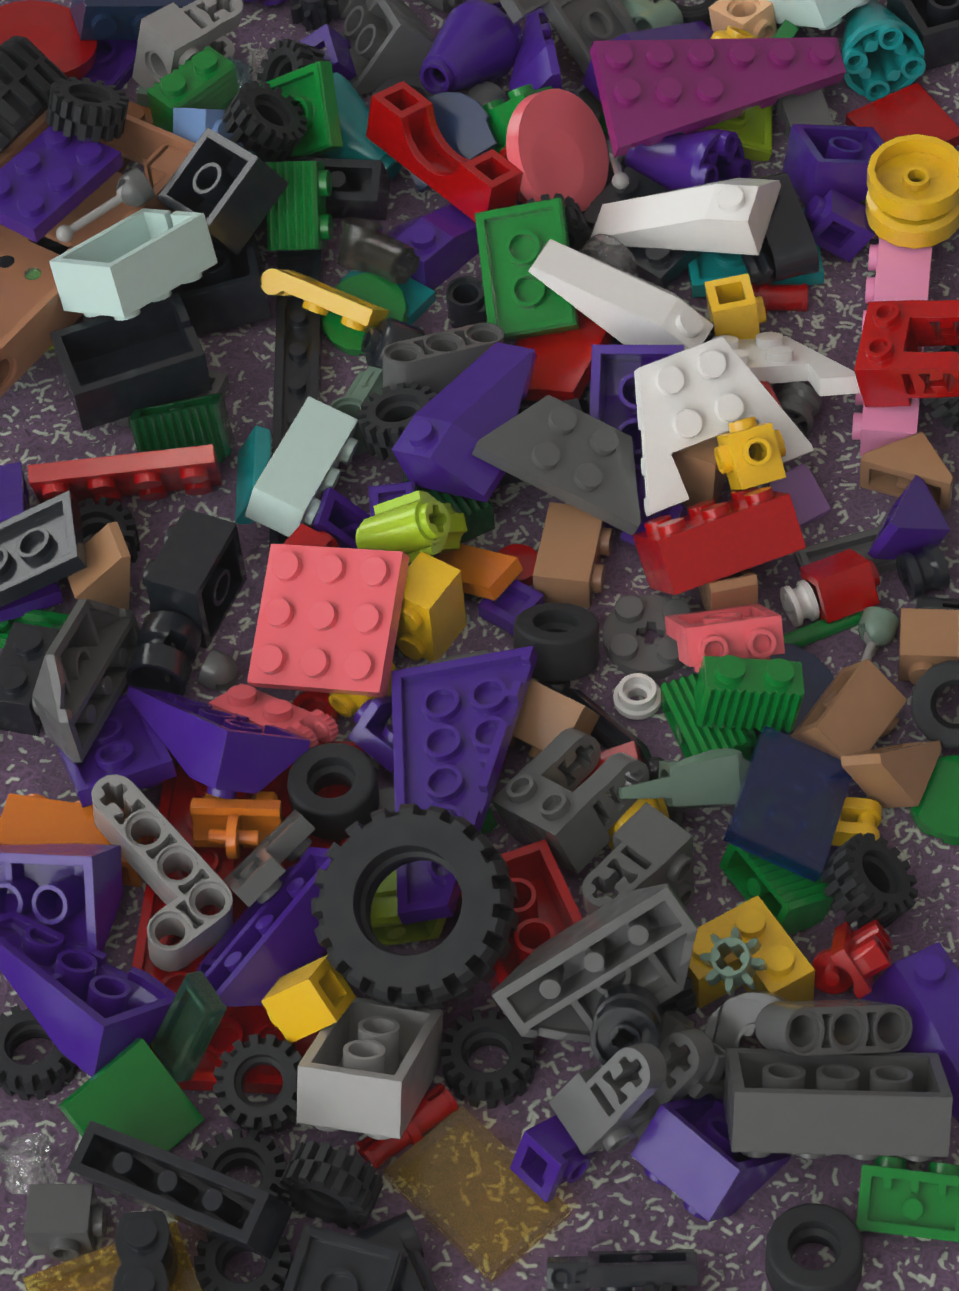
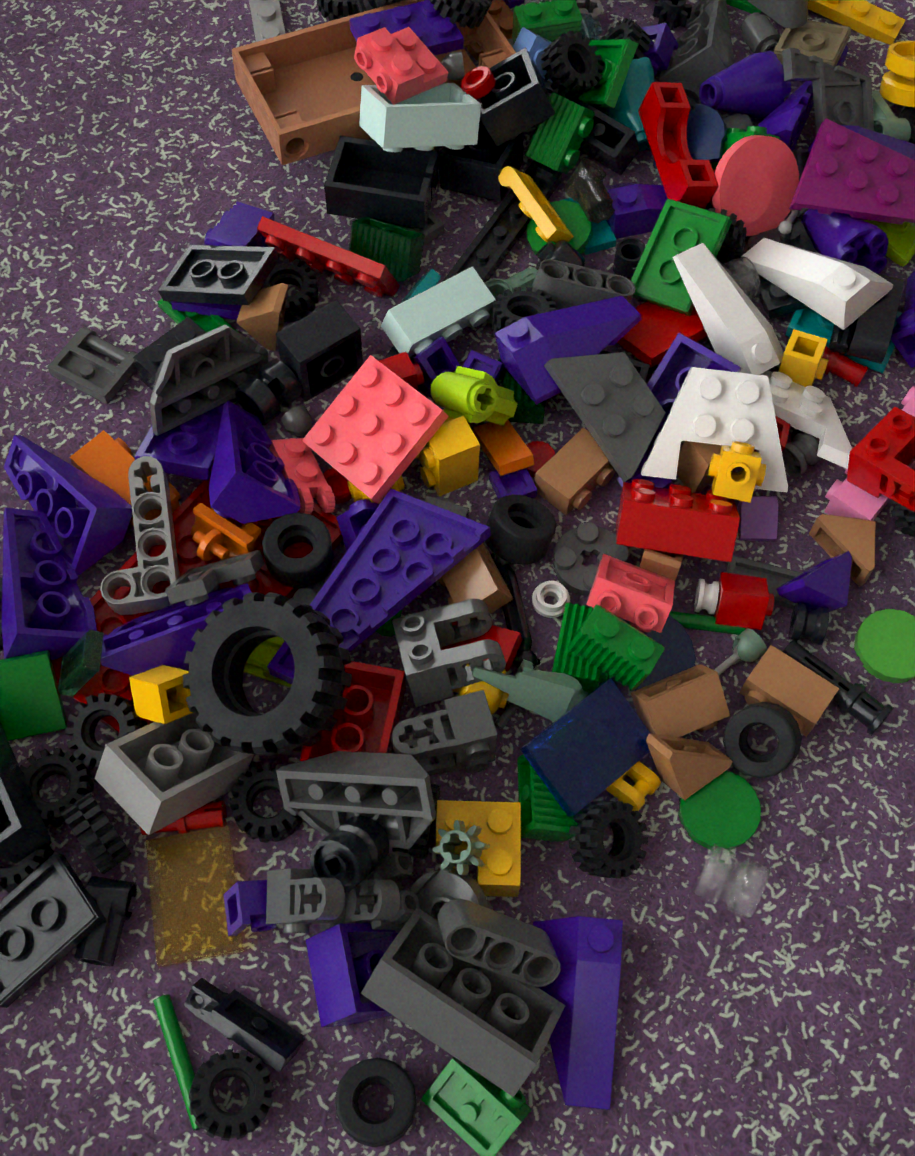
camera: 25 degrees right, 10 degrees up
(76, 216) = (399, 63): none -> coral plate
(176, 192) = (478, 82): none -> red tile
(853, 958) = (557, 892): red hips -> none

